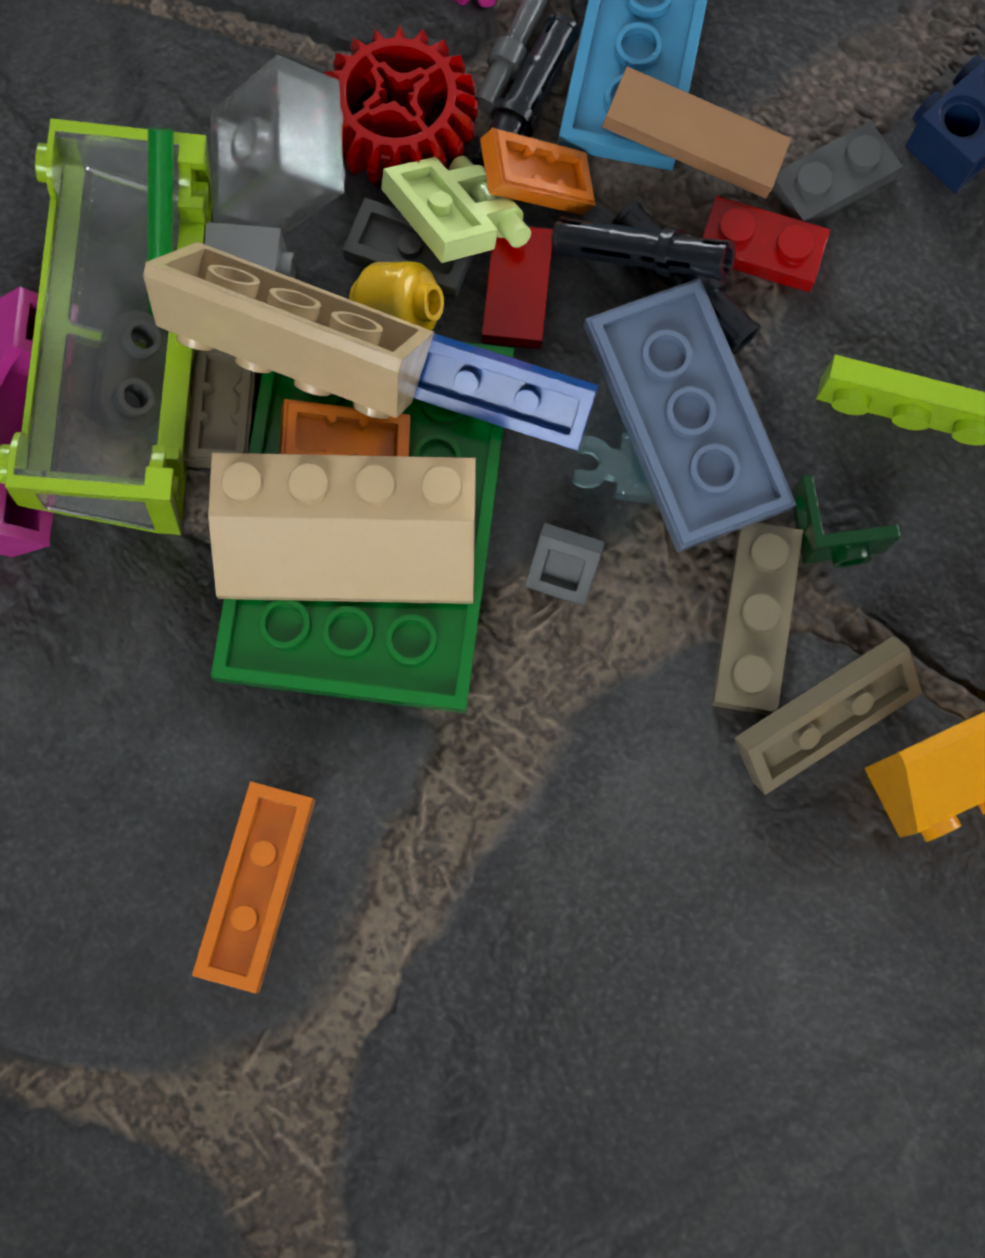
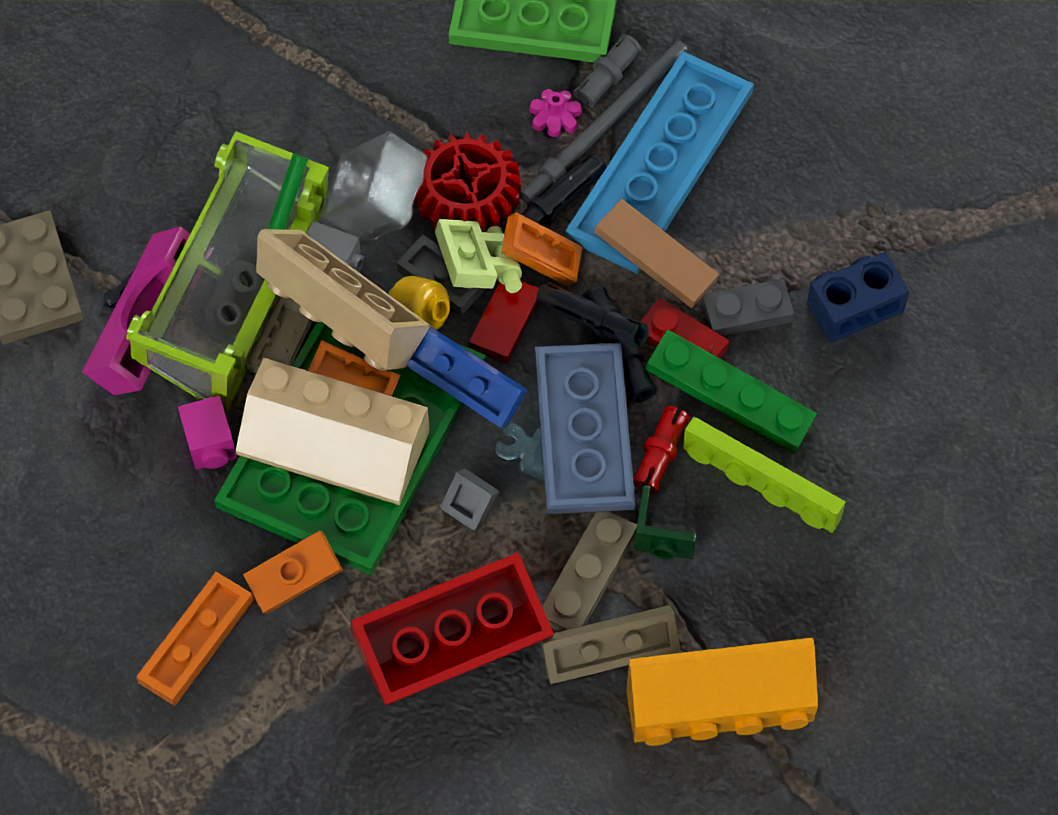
camera: 20 degrees right, 15 degrees down
(165, 578) = (207, 433): none -> dark pink brick
(359, 748) = (293, 572): none -> orange plate
(614, 770) = (450, 629): none -> red slope
(795, 410) = (660, 449): none -> red pin
(860, 301) = (730, 391): none -> green plate

